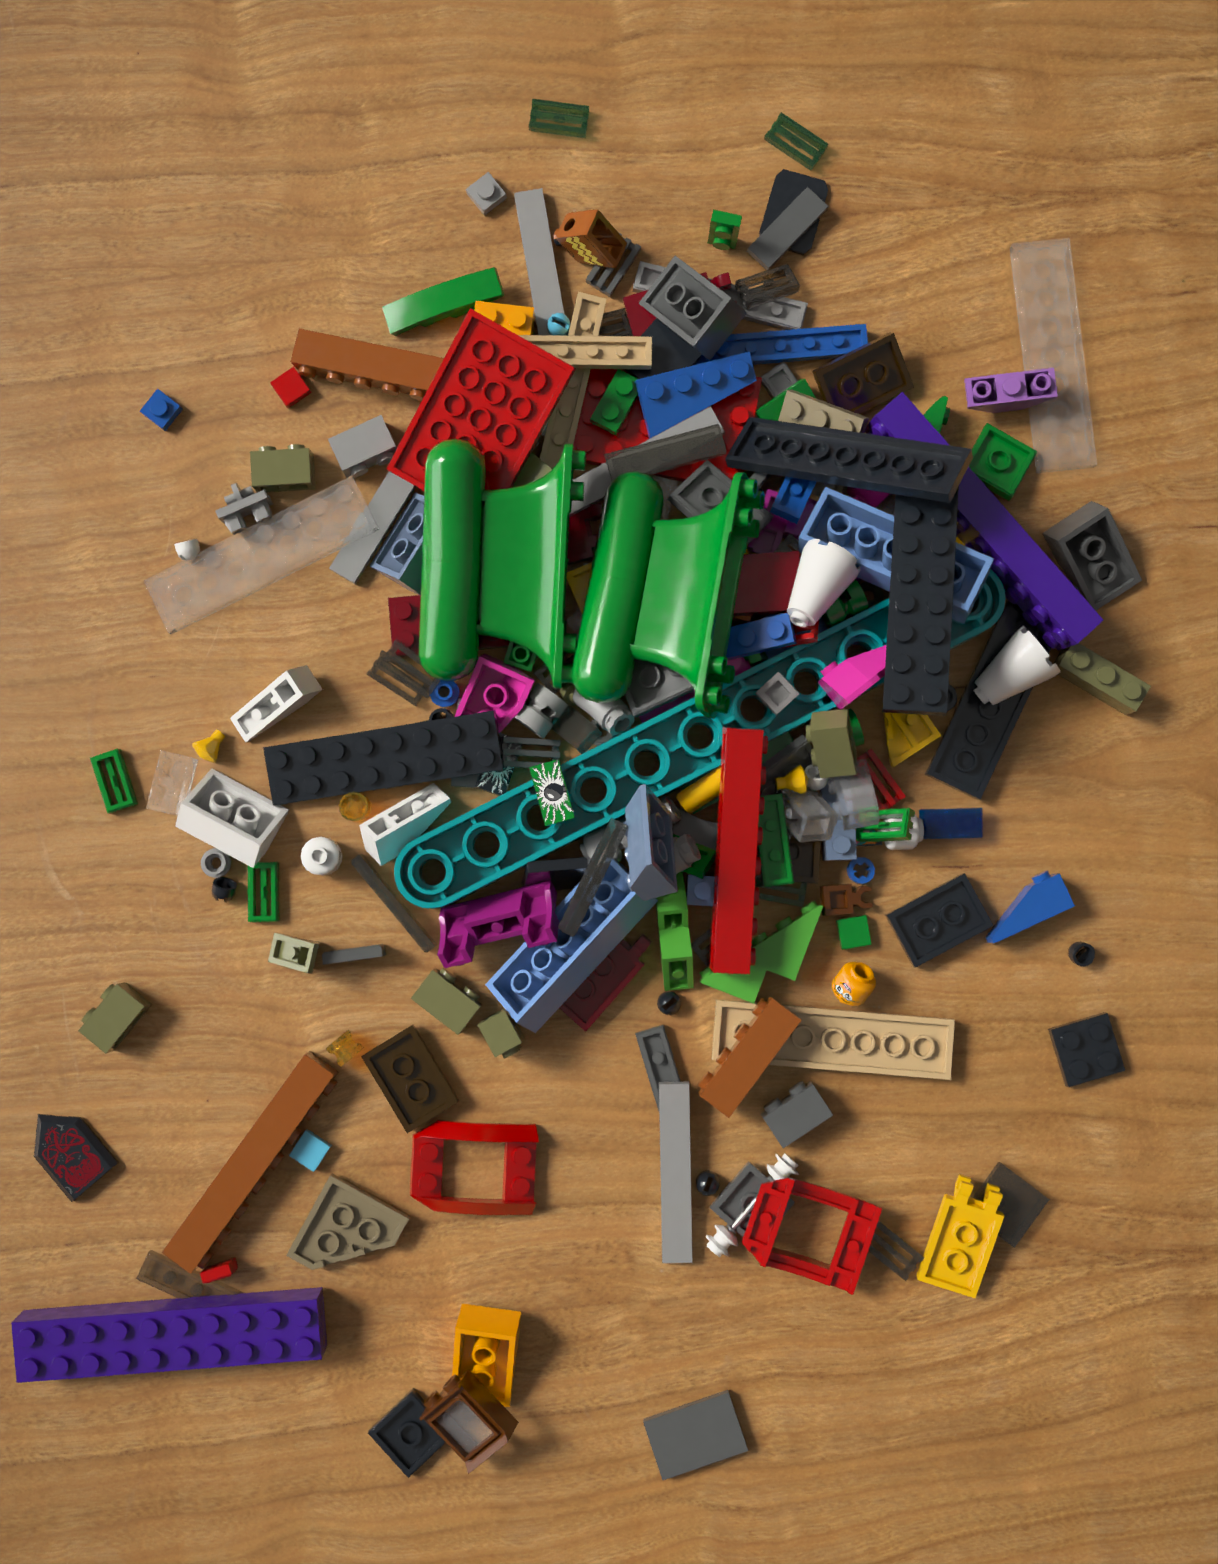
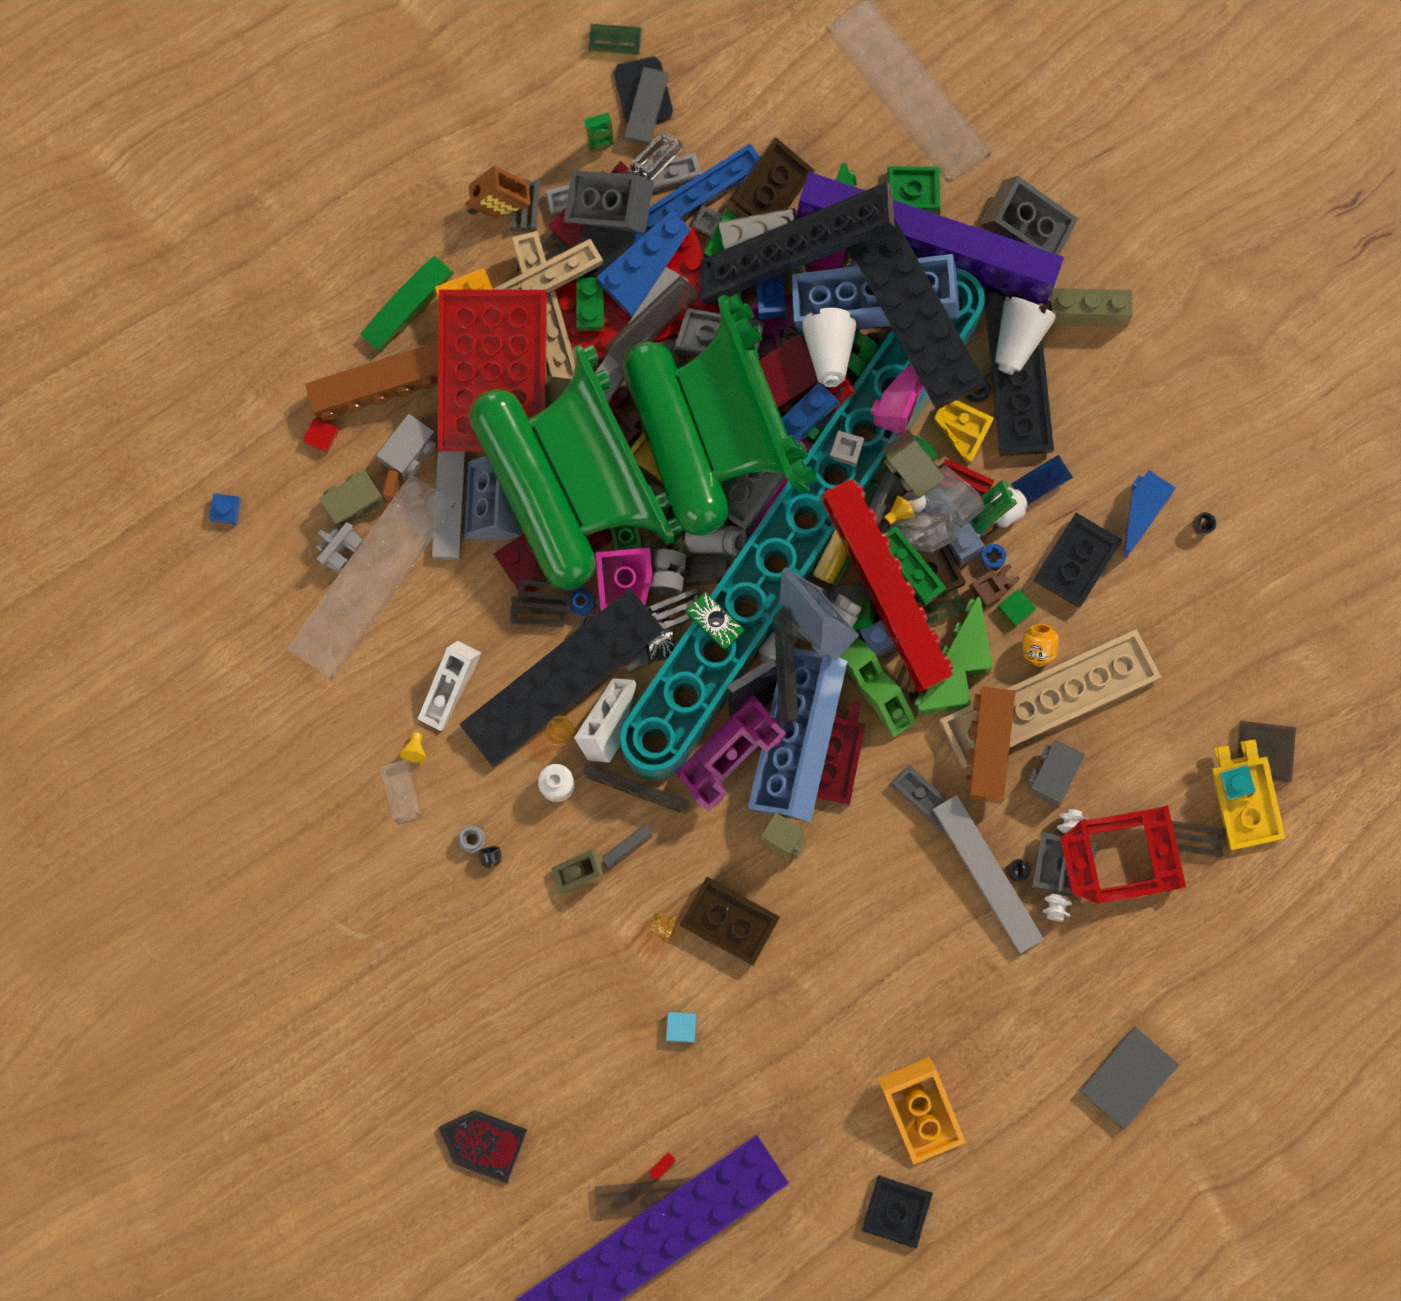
camera: 25 degrees left, 10 degrees down
(114, 1016) = (458, 1008): olive brick -> none
(123, 772) = (367, 837): green tile -> none
(187, 549) = (308, 604): white hinge -> none
(231, 817) = (464, 795): white slope -> none
(250, 1162) = (637, 1062): dark orange brick -> none
(275, 913) = (534, 861): green tile -> none
(328, 476) = (391, 485): none -> dark orange tile
(345, 1226) = (745, 1070): dark tan plate -> none
(447, 1000) = (724, 841): olive brick -> none
(469, 1419) = (937, 1166): reddish brown window -> none
(486, 193) = (393, 205): light grey plate -> none
(517, 1173) = (860, 947): red wedge -> none
(539, 257) = (466, 233): light grey tile -> none
(557, 329) = (509, 274): medium azure hinge -> none
(559, 107) = (416, 116): clear green tile -> none
(666, 997) = (908, 749): black hinge -> none
(961, 1225) = (1237, 782): none -> teal plate
(1010, 390) = (891, 132): medium lavender slope -> none
(1086, 1049) = (1253, 596): black plate -> none

